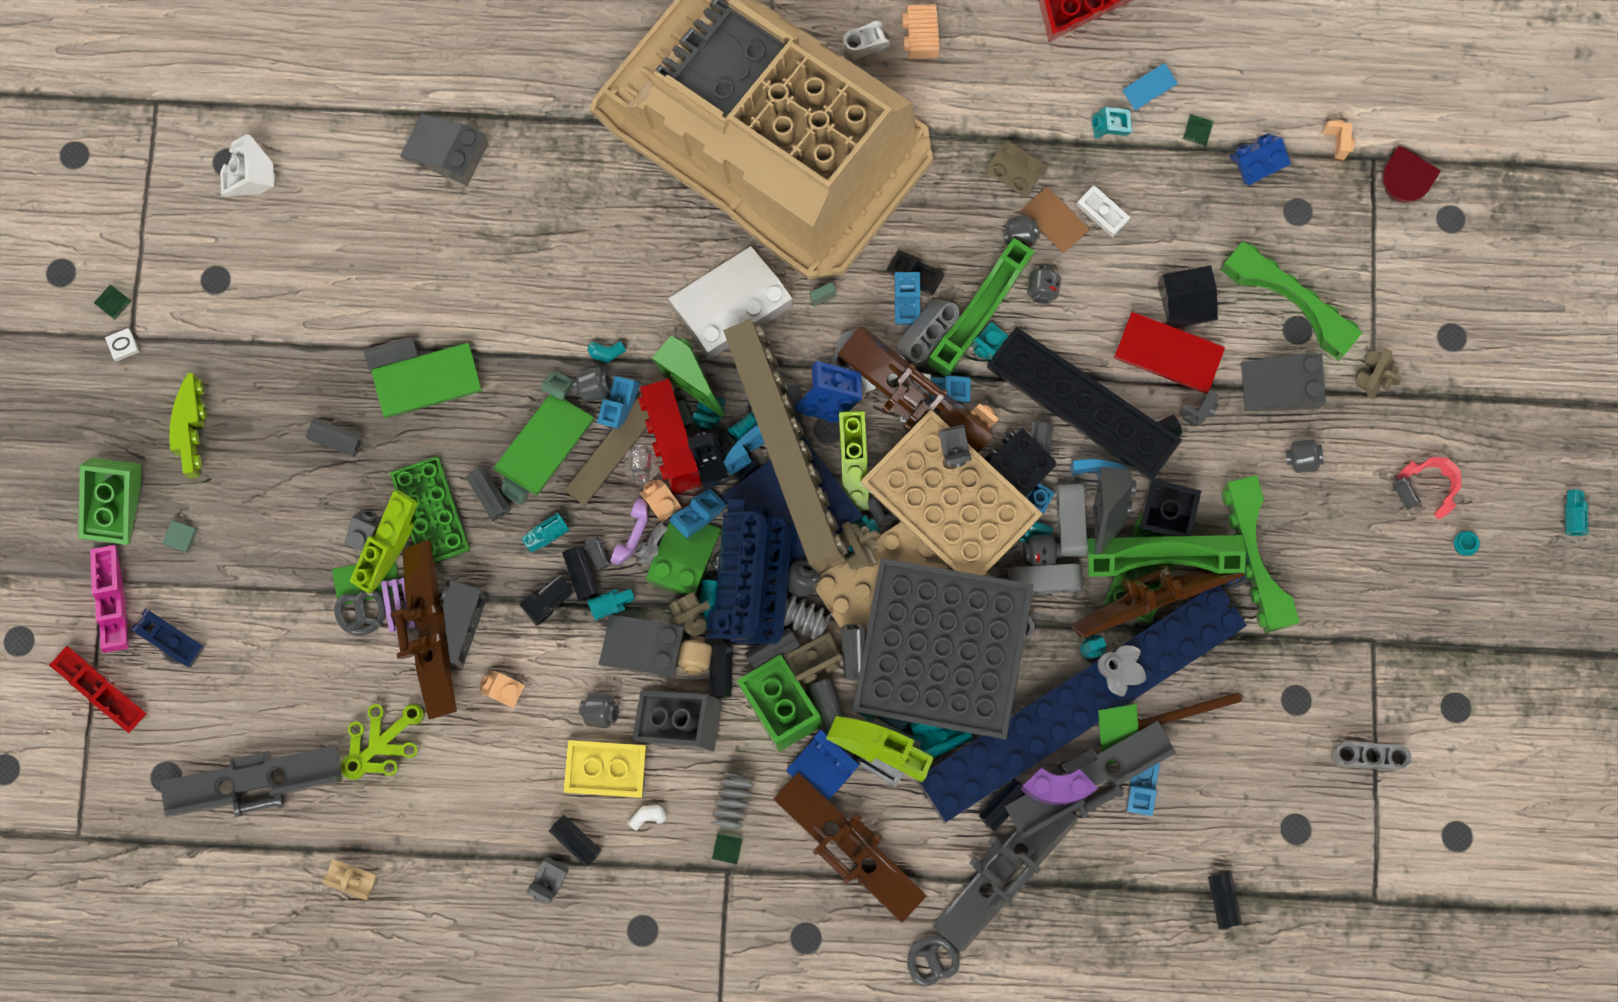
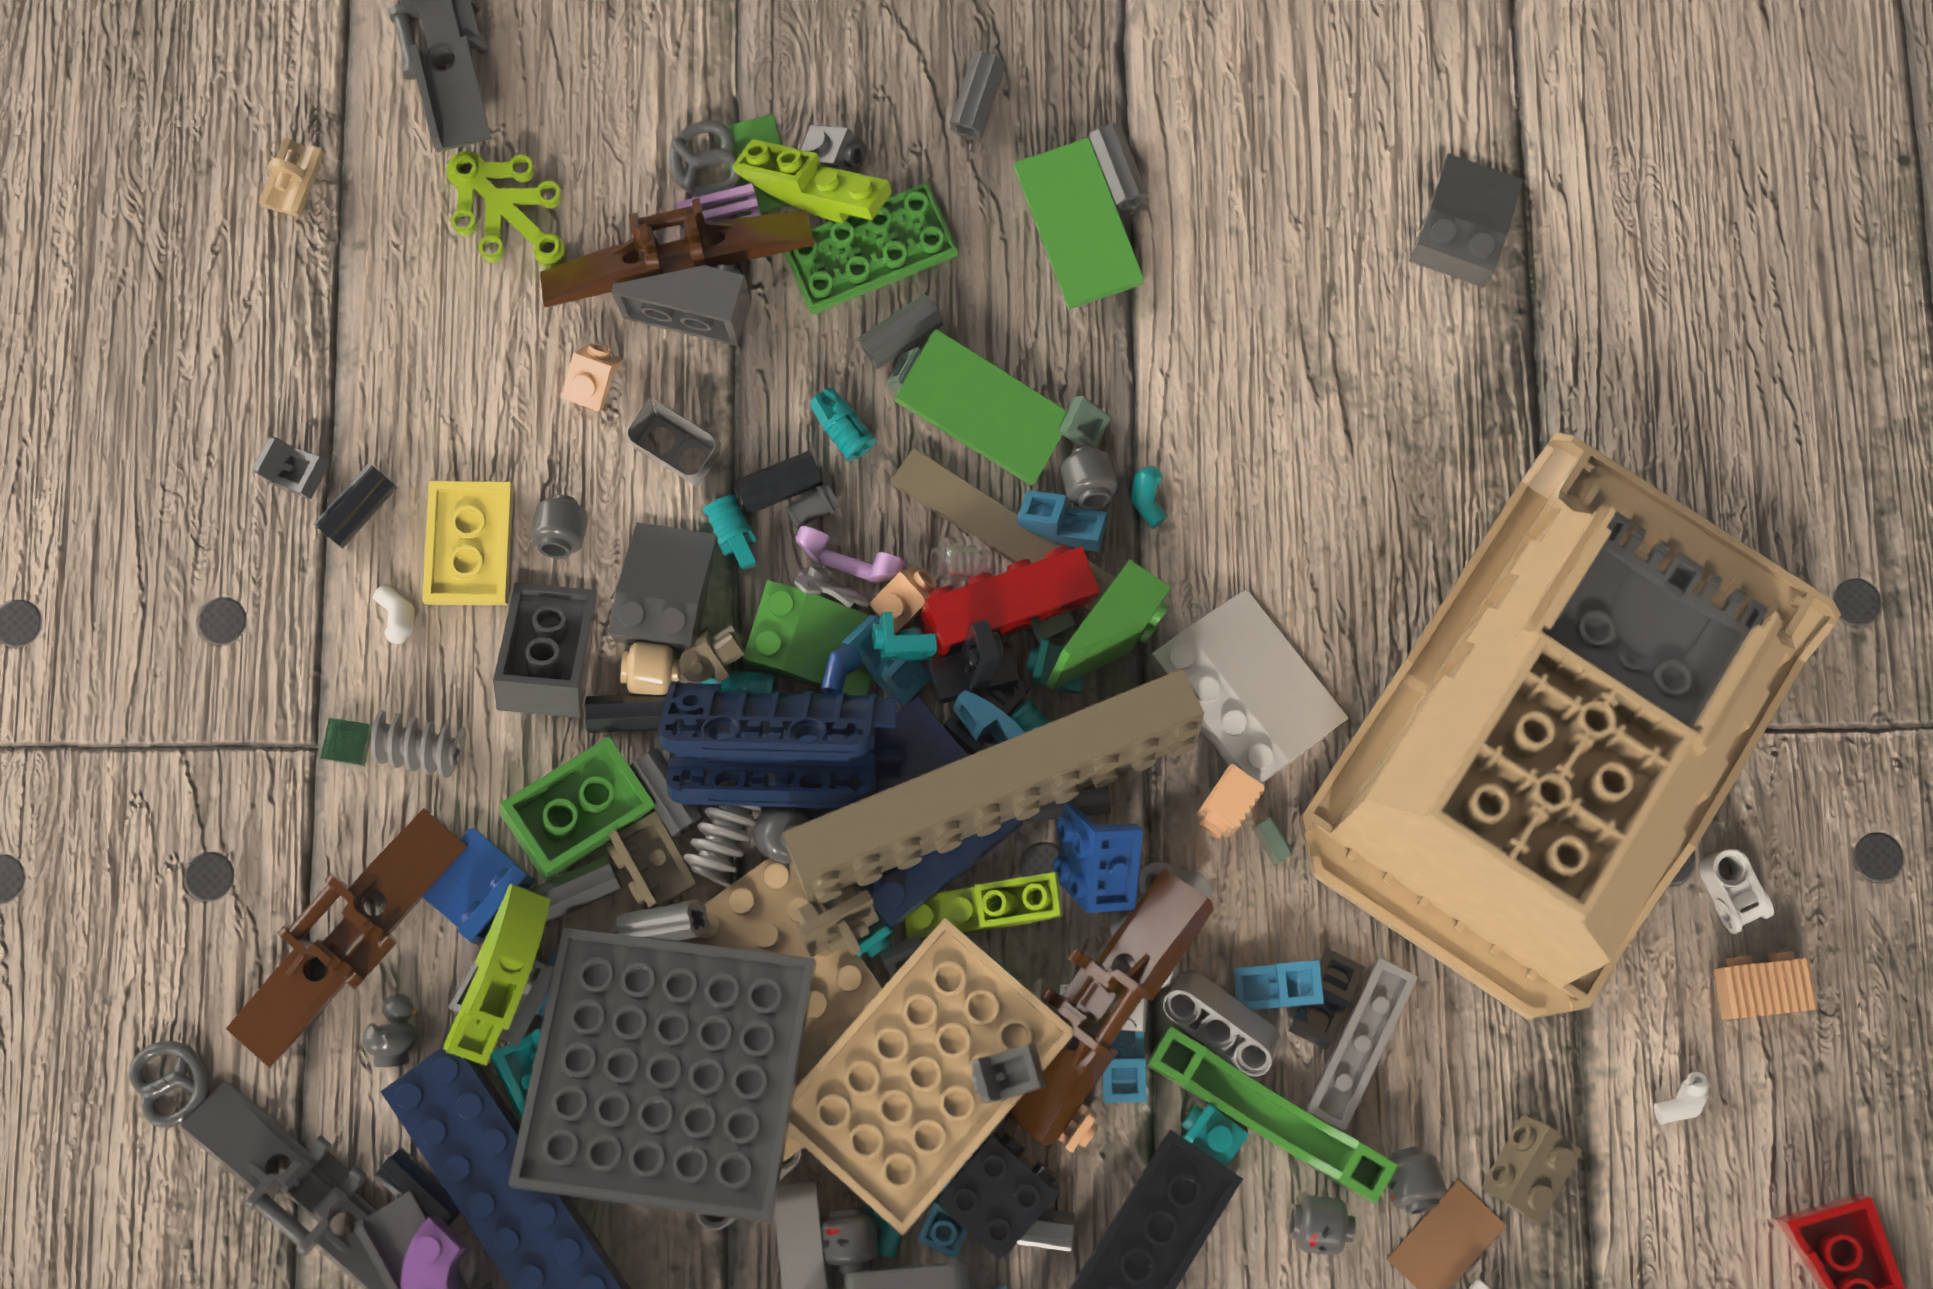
camera: 90 degrees right, 0 degrees up
(537, 636) = (679, 426): none -> light grey piece
(541, 604) = (734, 434): black piece -> none
(691, 502) = (908, 645): none -> teal bracket
(701, 535) = (839, 664): none -> blue arm
(799, 315) = (1229, 802): none -> light nougat brick
(913, 819) = (392, 1041): none -> dark grey animal
(942, 255) = (1361, 1044): none -> light grey plate
(982, 80) = (1688, 1102): none -> white arm

